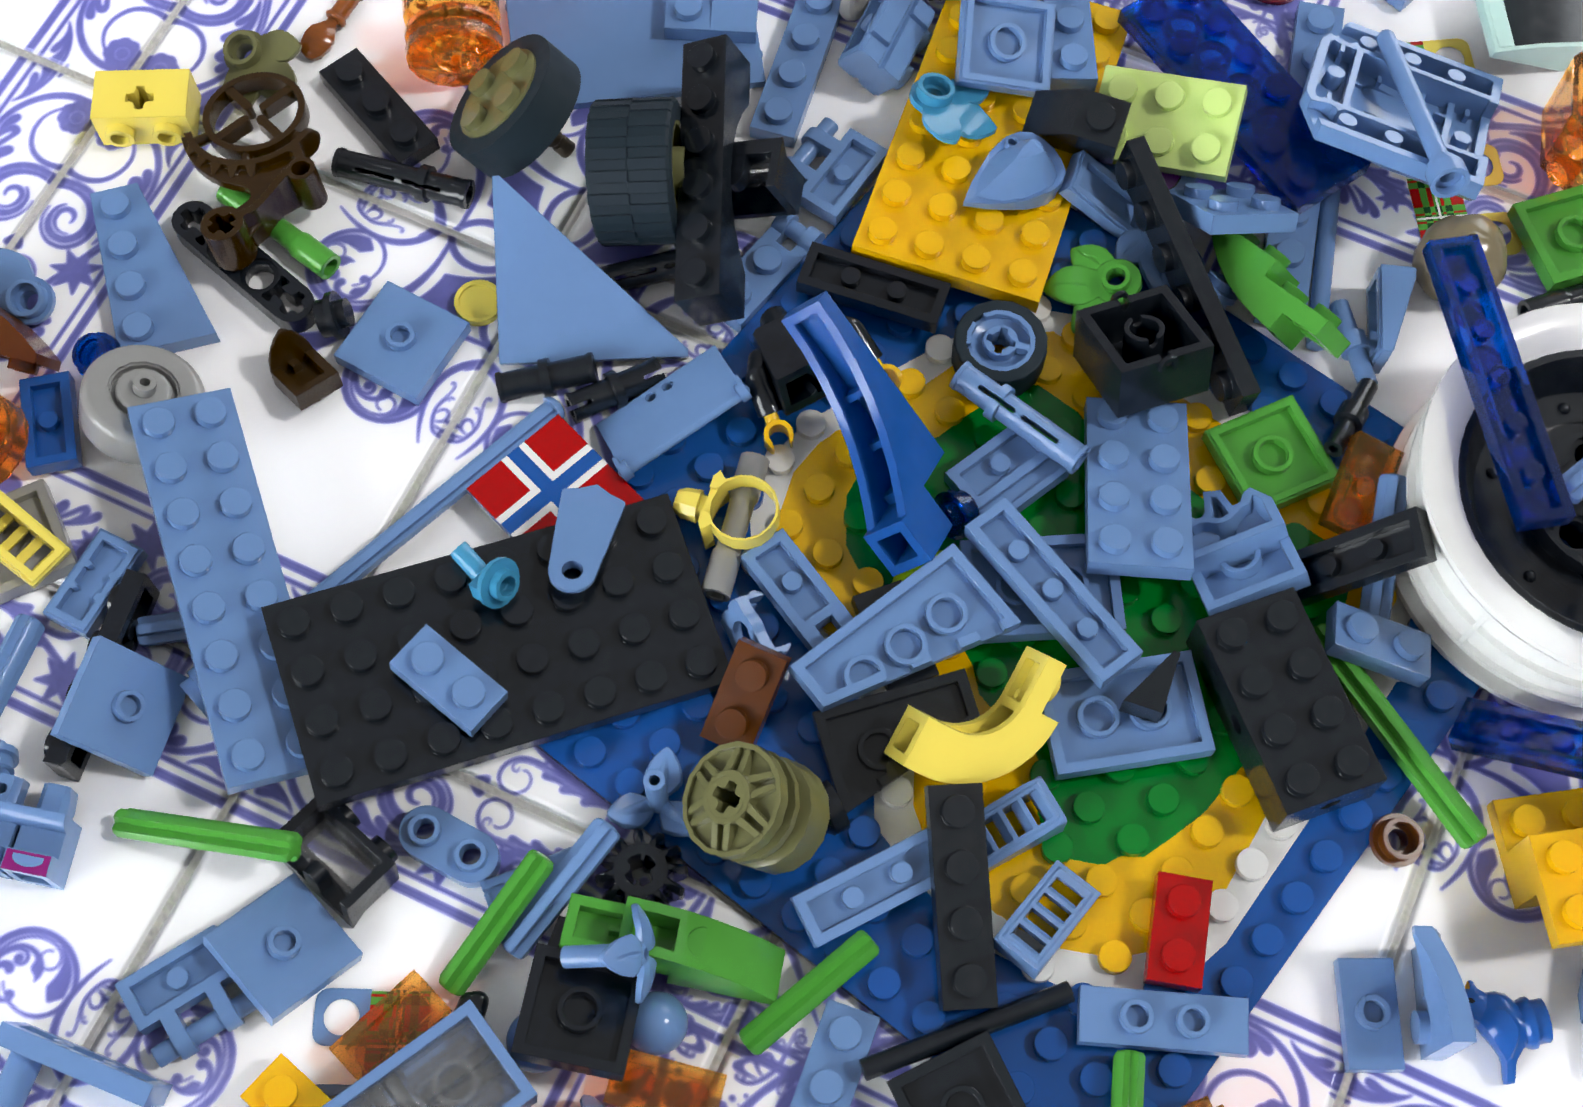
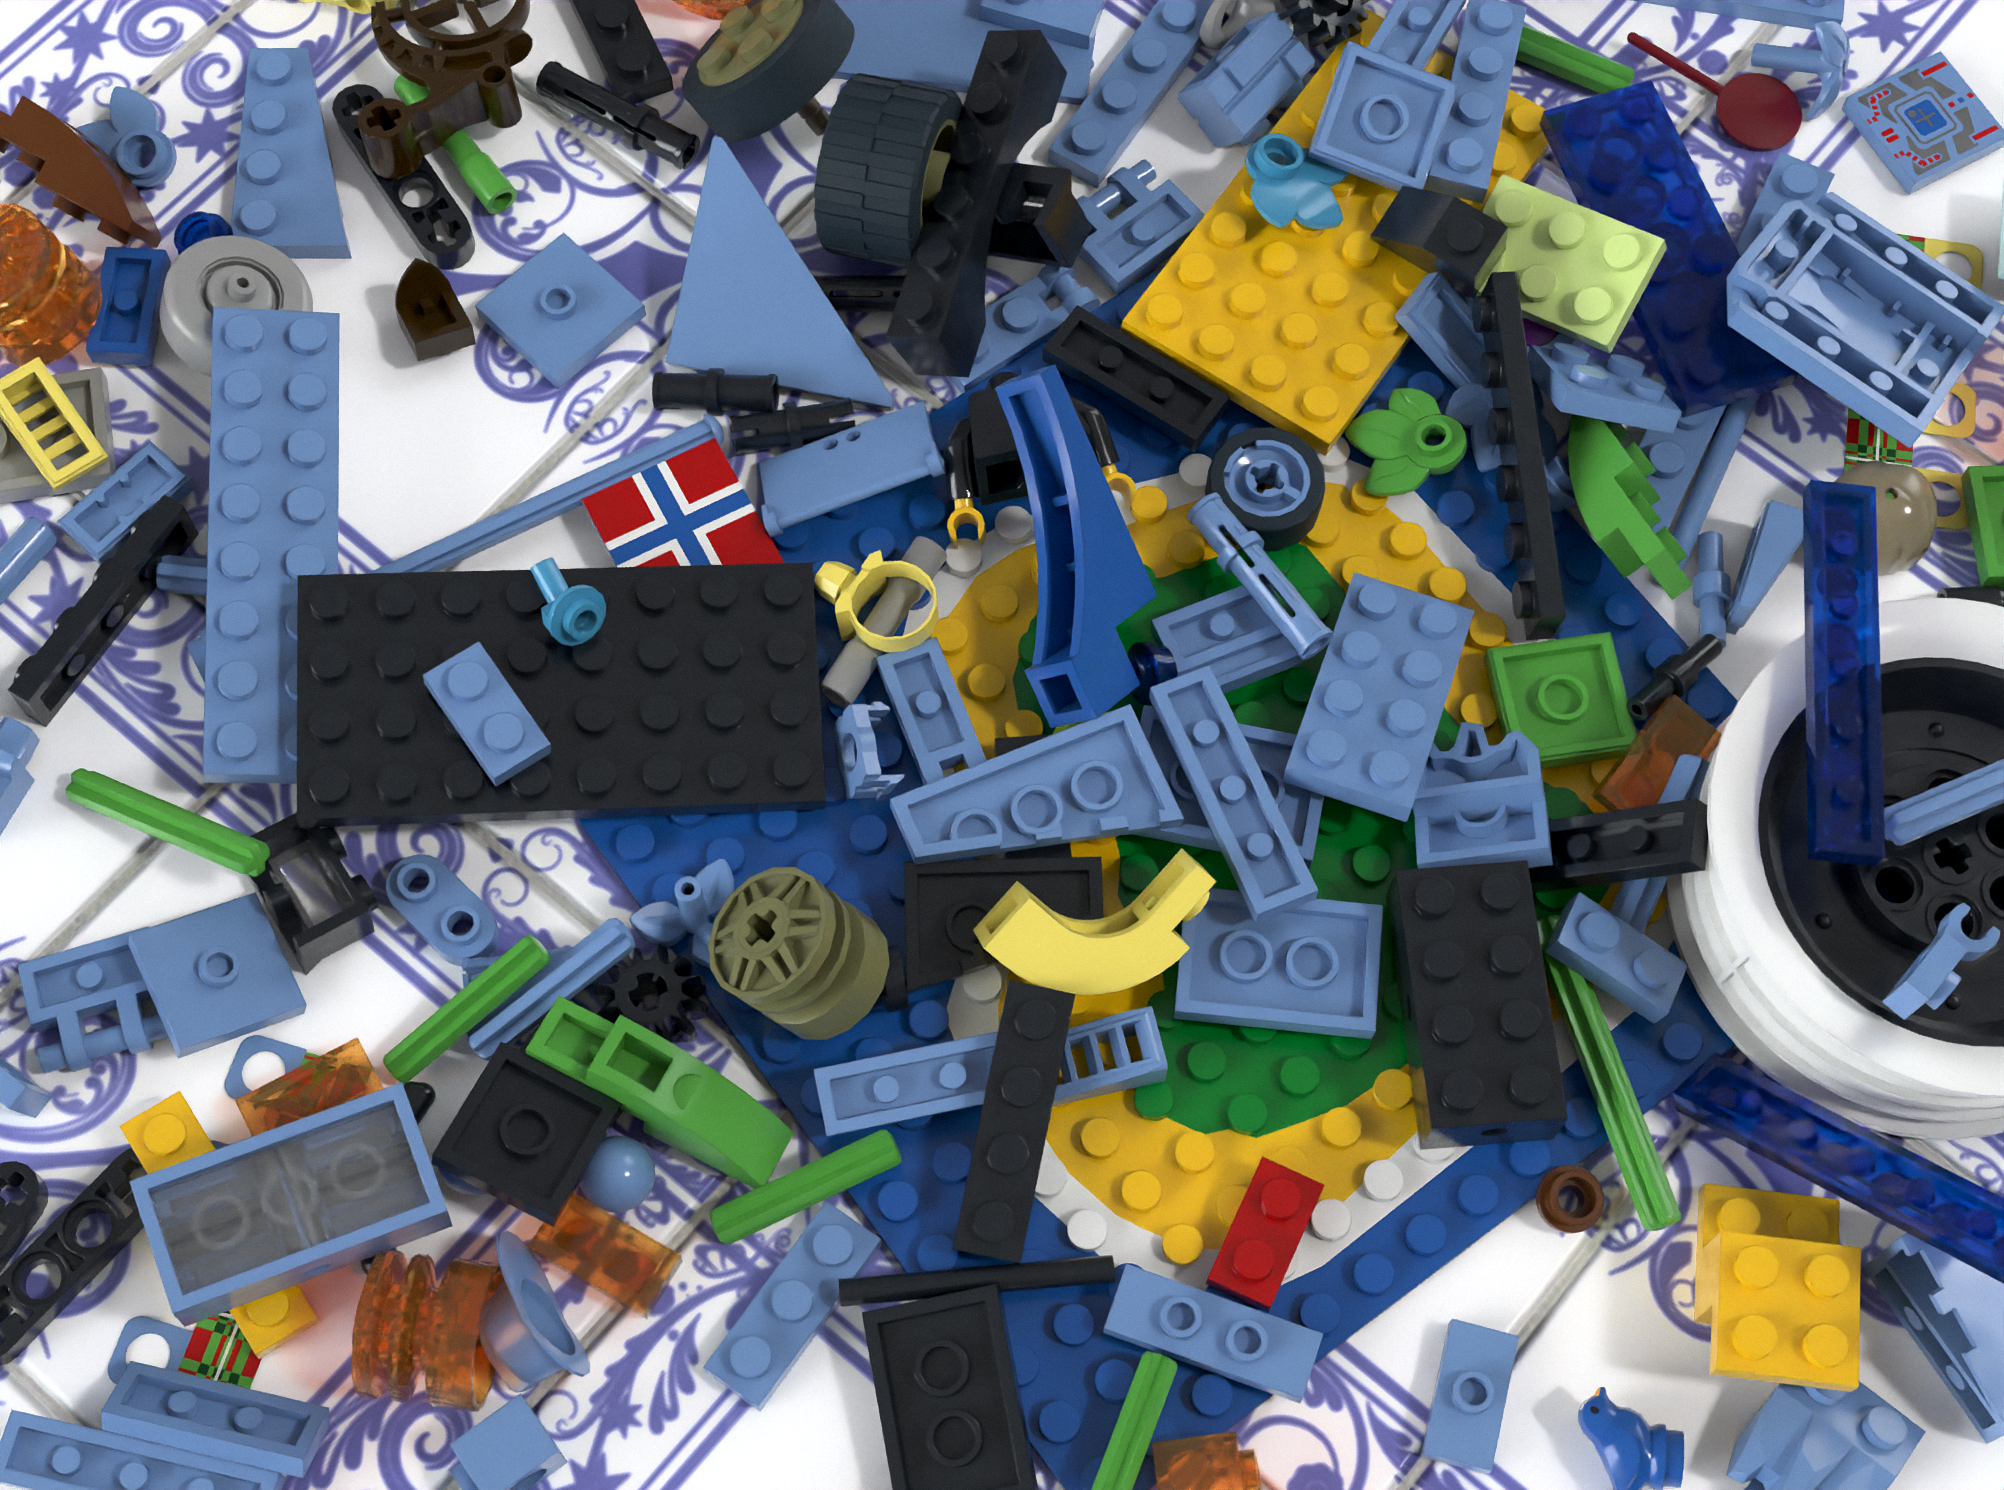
camera: 15 degrees right, 0 degrees up
(121, 706) = (113, 651): medium blue plate -> none
(333, 315) = (488, 258): black plate -> none
(477, 302) = (659, 283): light yellow piece -> none
(582, 535) = (694, 585): medium blue piece -> none
(623, 956) = (591, 1079): medium blue plant -> none
(745, 694) = (832, 819): reddish brown plate -> none
(1017, 175) = (1348, 283): medium blue piece -> none
(1020, 952) = (1066, 1208): medium blue slope -> none
(1142, 350) = (1434, 531): black brick -> none
(1151, 695) = (1314, 944): black piece -> none
(1443, 1011) = (1549, 1425): medium blue plate -> none
(1445, 171) = (1875, 403): medium blue piece -> none

